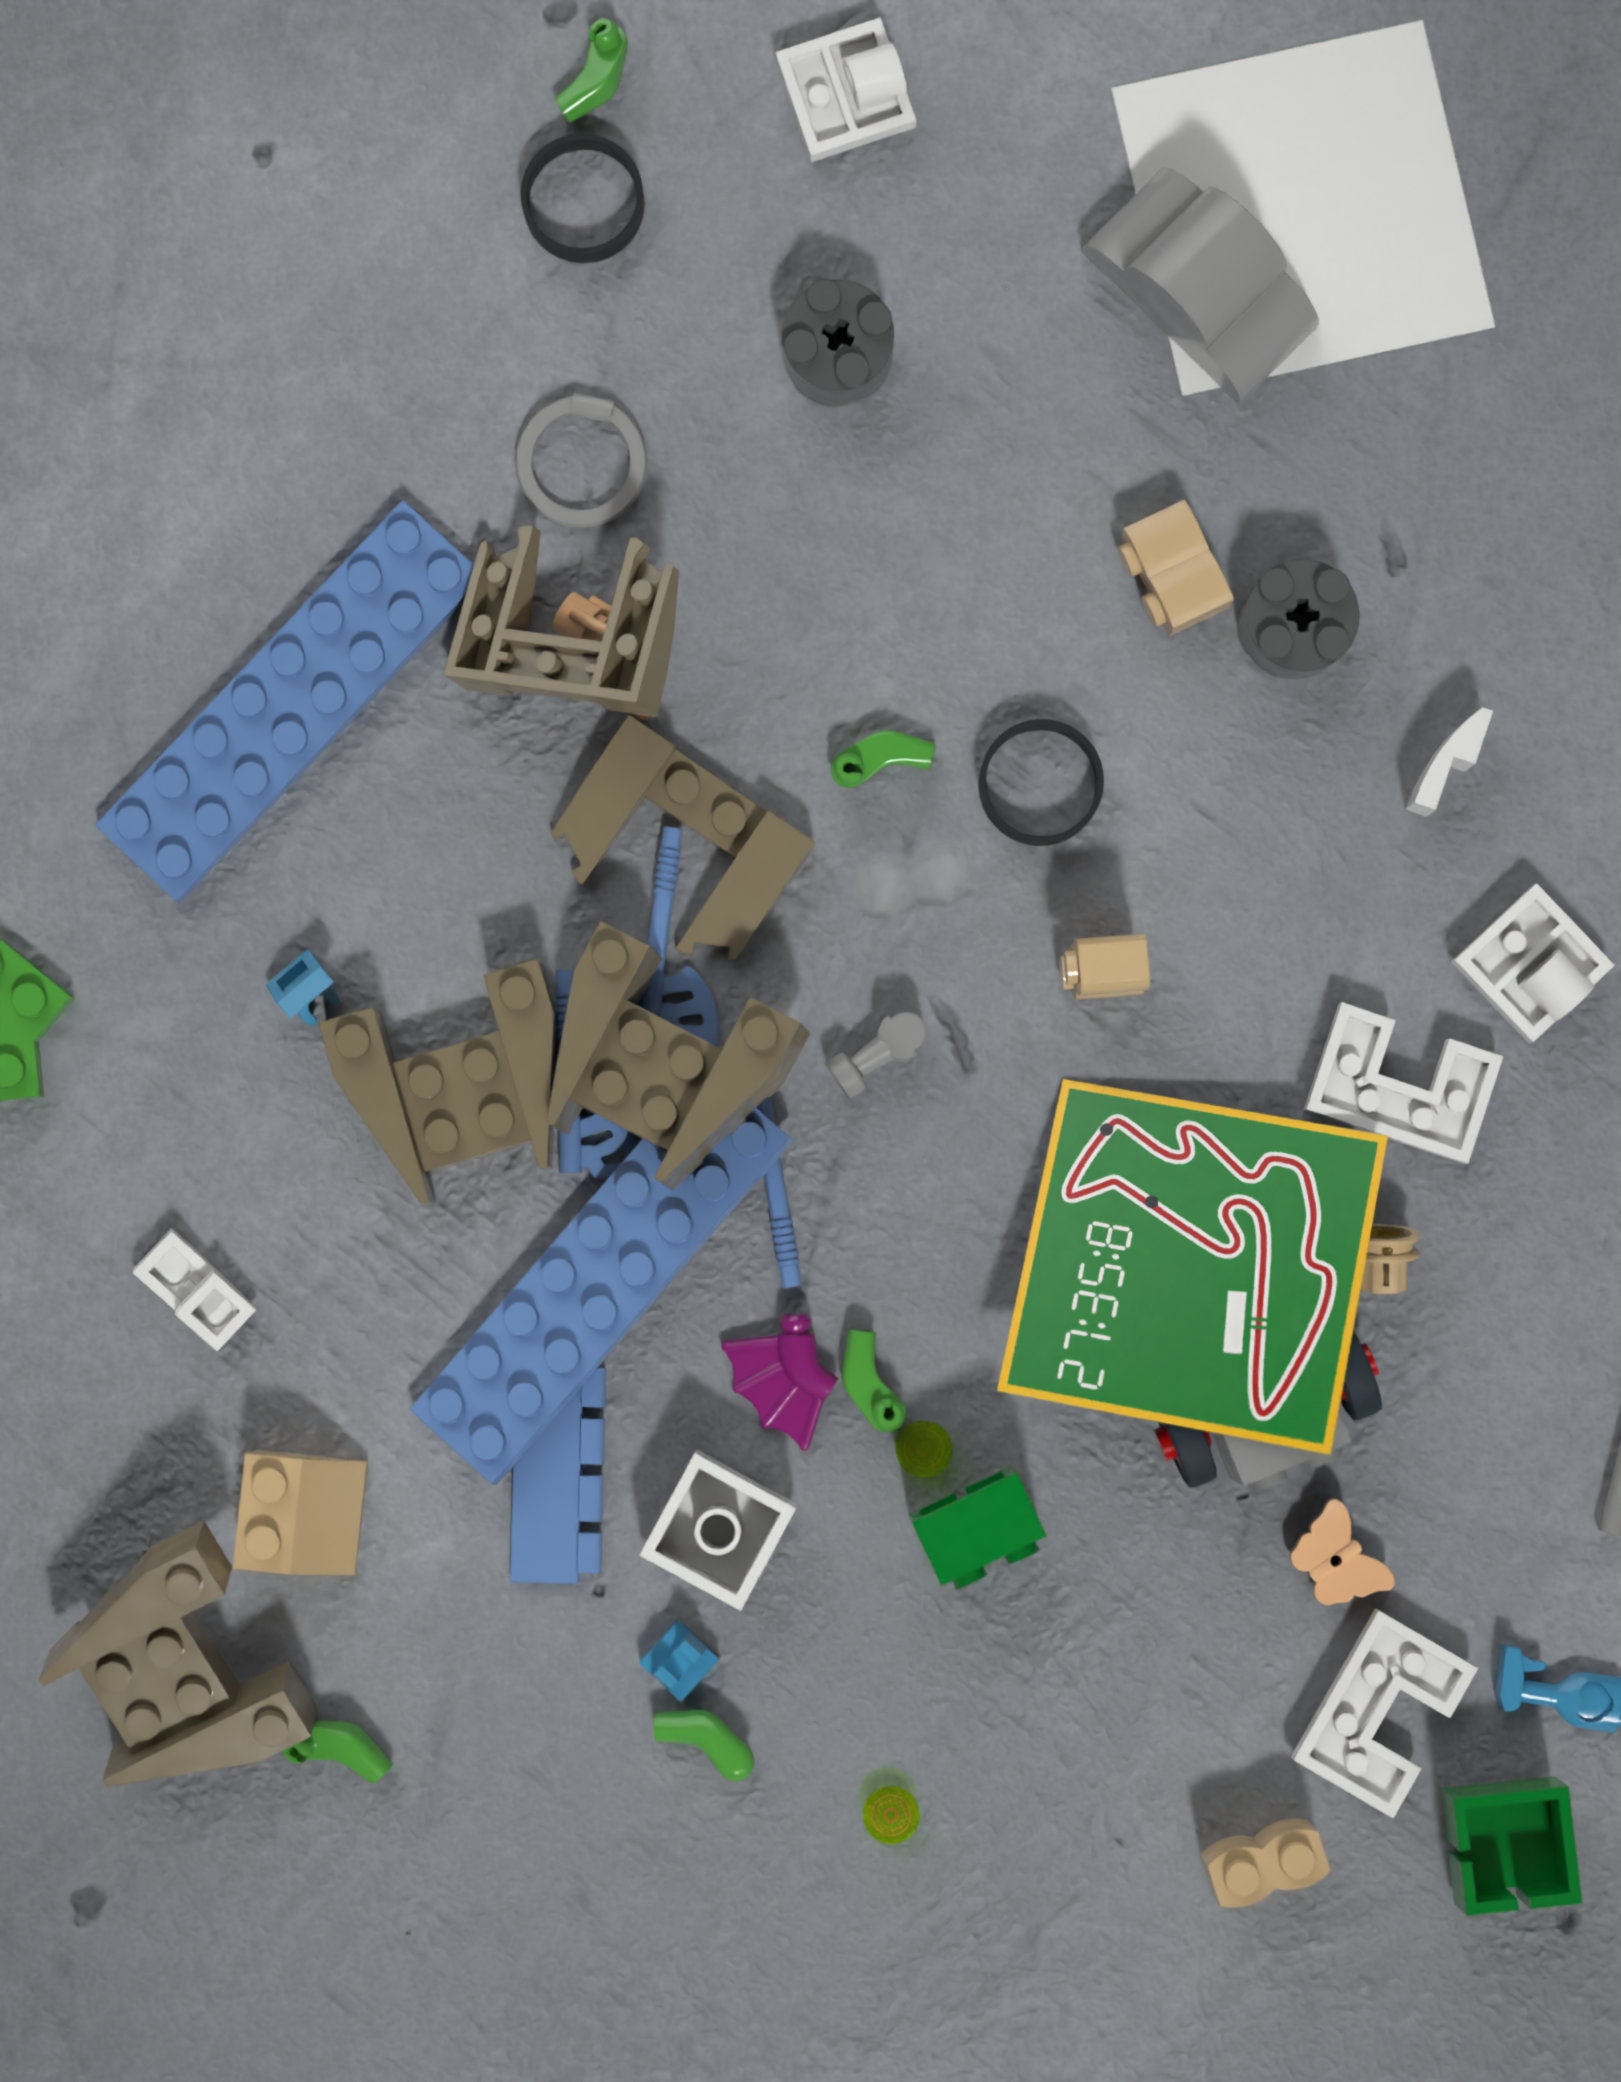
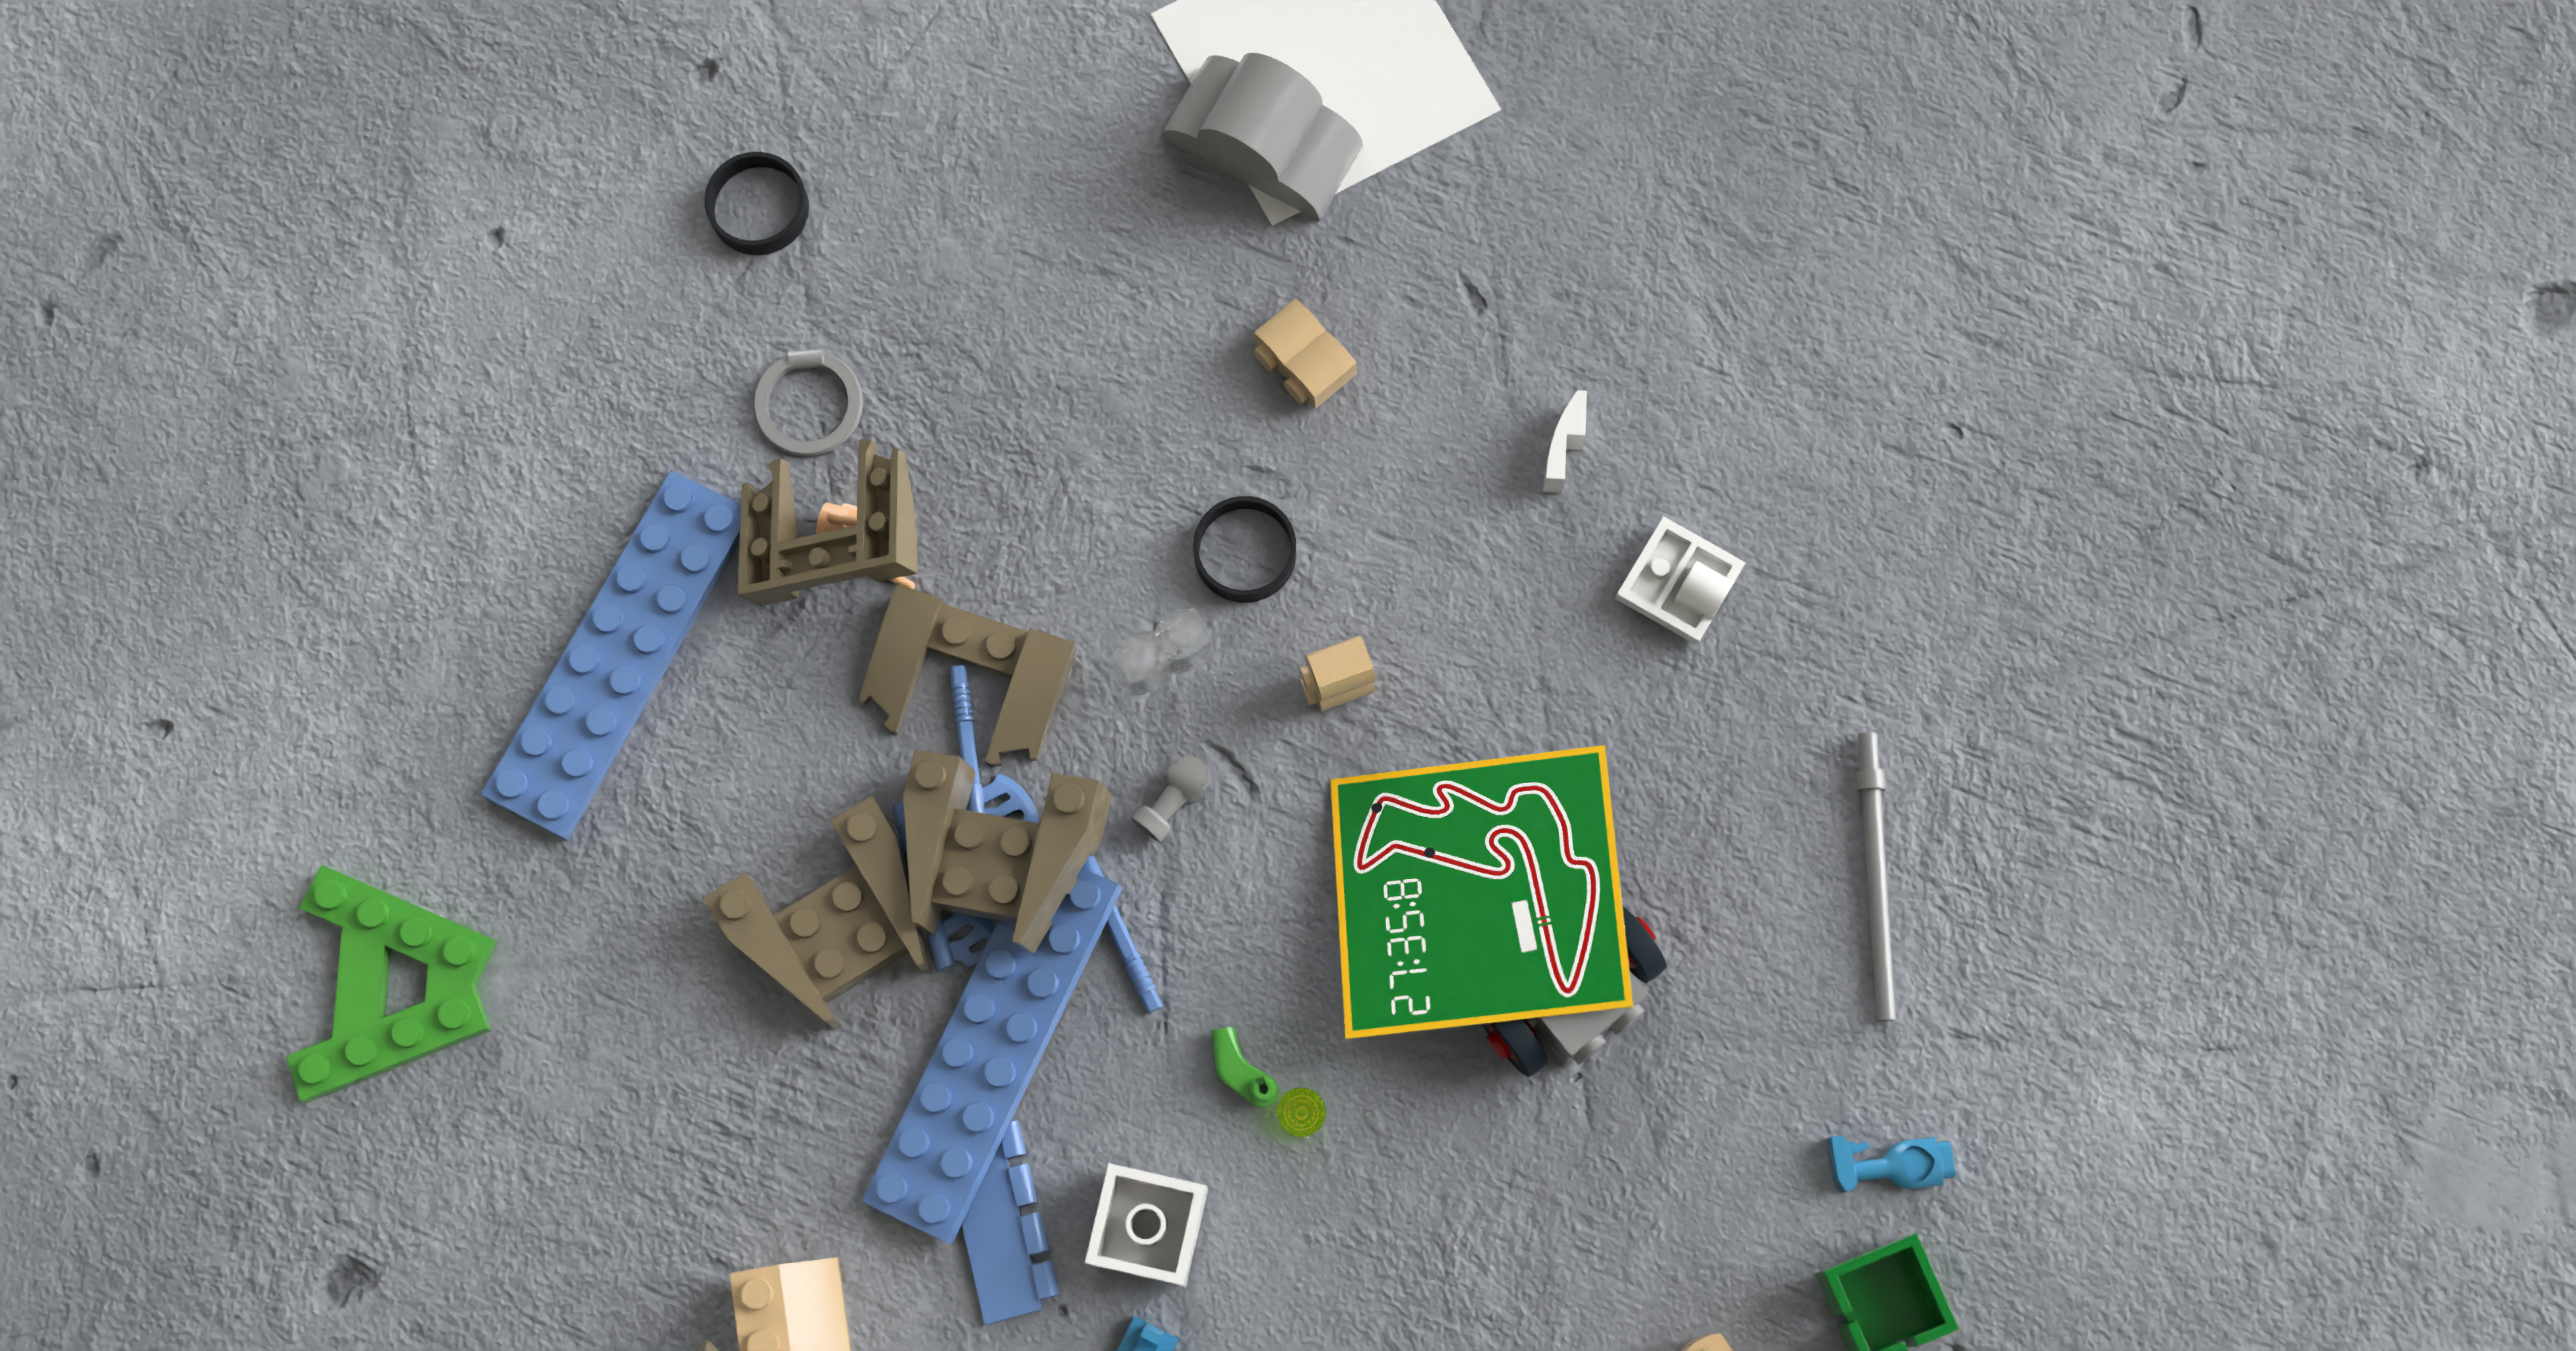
camera: 15 degrees left, 10 degrees down
(194, 1289) = (655, 1153): white slope -> none
(301, 984) = (682, 875): dark azure tile -> none
(601, 72) = (746, 107): bright green arm -> none
(783, 1377) = (1168, 1086): magenta arm -> none
(822, 315) = (1010, 262): dark grey brick -> none
(846, 89) = (943, 67): white plate -> none
(878, 751) = (1107, 560): bright green arm -> none
(978, 1528) = (1362, 1159): green piece -> none
(1321, 596) = (1427, 345): dark grey brick -> none
(1341, 1732) = (1717, 1251): white plate -> none
(1355, 1572) = (1687, 1112): light nougat animal -> none
(1388, 1258) = (1635, 846): tan piece -> none
(1434, 1121) = (1637, 727): white plate -> none

